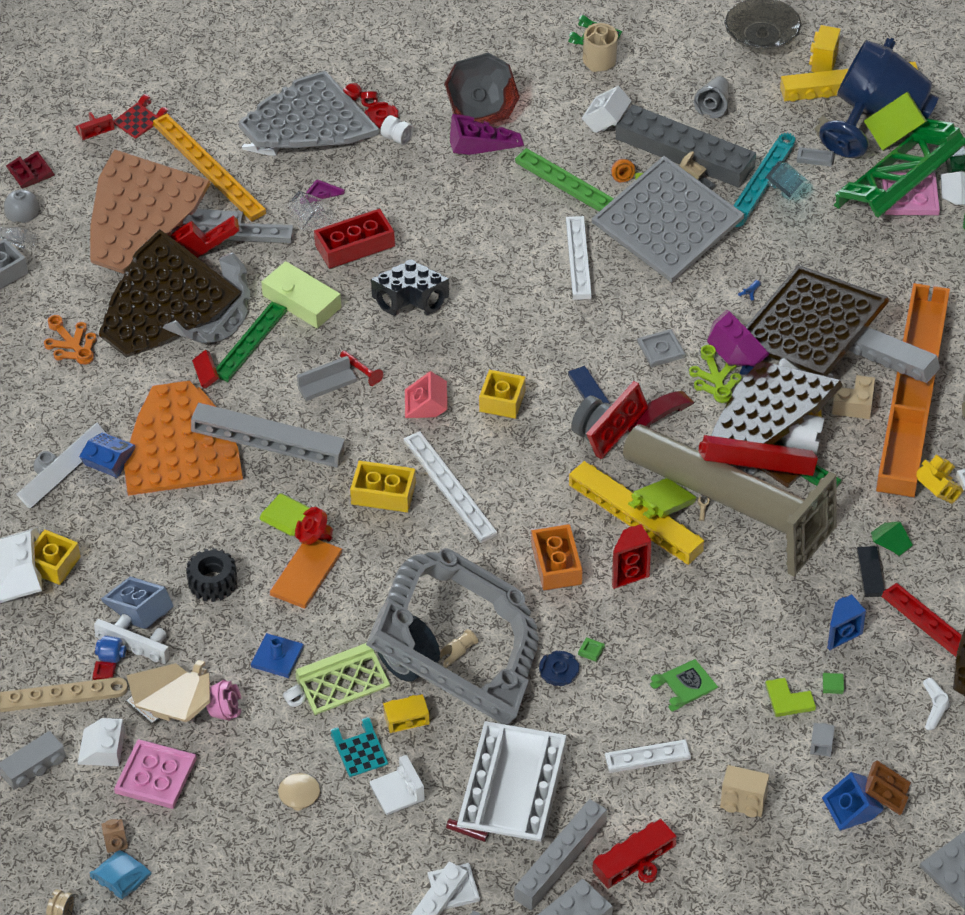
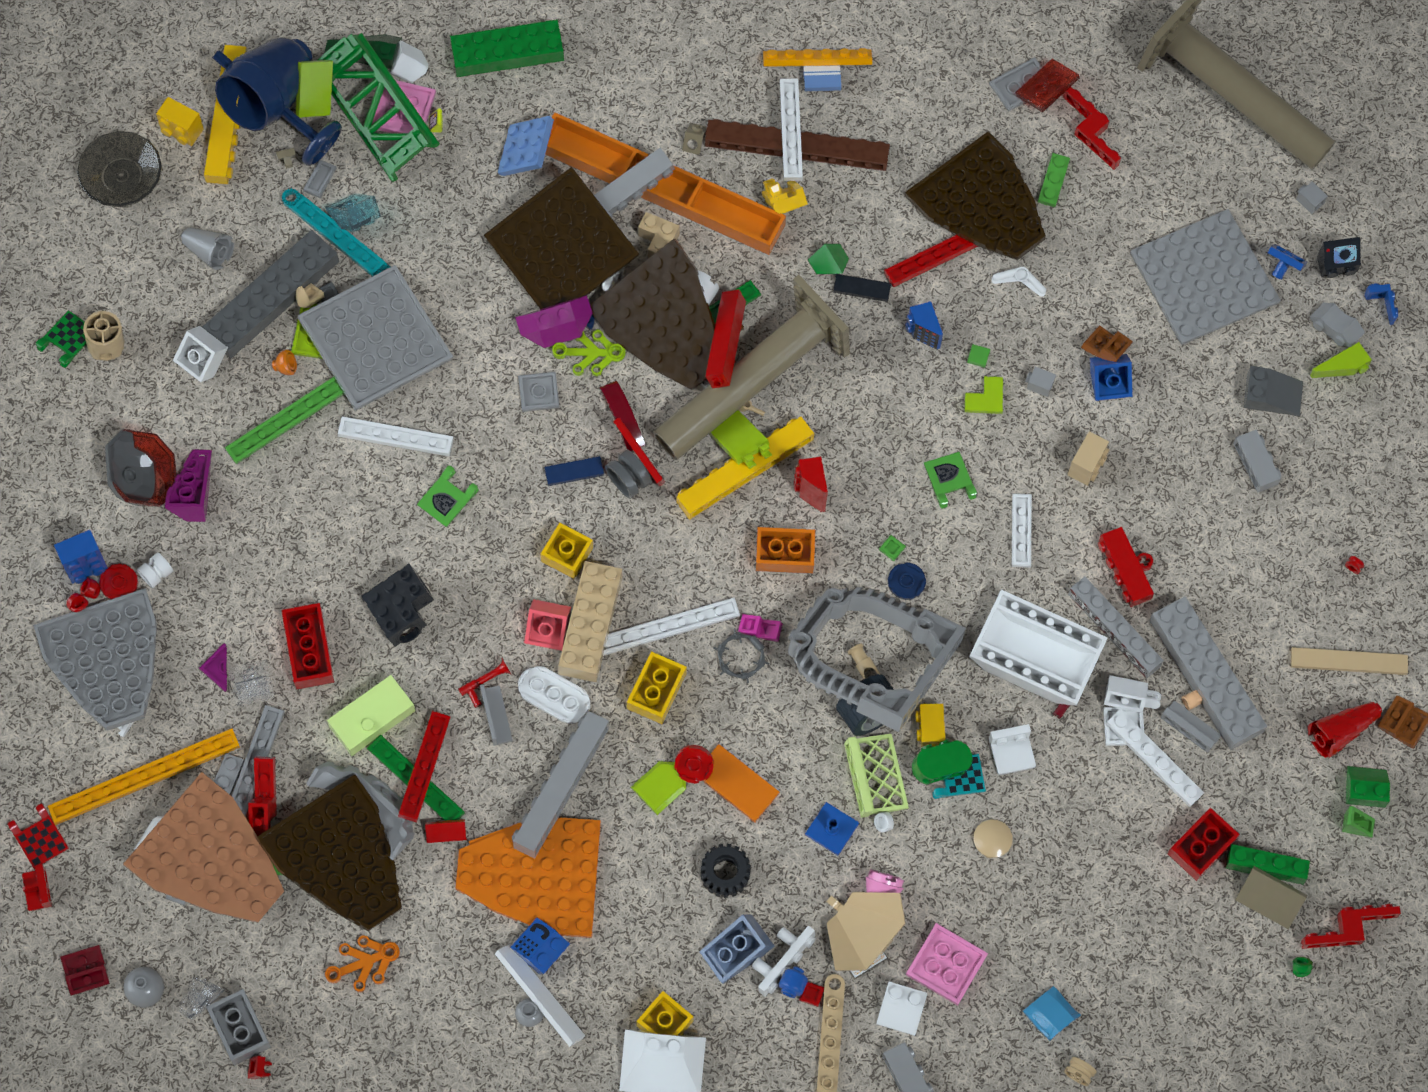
camera: 80 degrees left, 20 degrees up
(114, 835) = (1006, 1012): medium nougat bracket -> none
(261, 337) = (424, 766): none -> red plate
(359, 419) = (554, 694): none -> white tile
(365, 722) = (941, 761): none -> green brick
(389, 75) = (81, 557): none -> blue brick
(436, 424) = (590, 621): none -> tan brick
(440, 531) = (757, 644): none -> dark grey piece
(472, 552) = (760, 627): none -> dark pink slope
(487, 878) = (1130, 694): none -> white brick
(530, 305) = (444, 499): none -> bright green flag
(751, 289) = (485, 289): blue bar -> none
(906, 277) = (525, 146): none -> medium blue plate
(908, 220) = (436, 121): none -> neon yellow slope

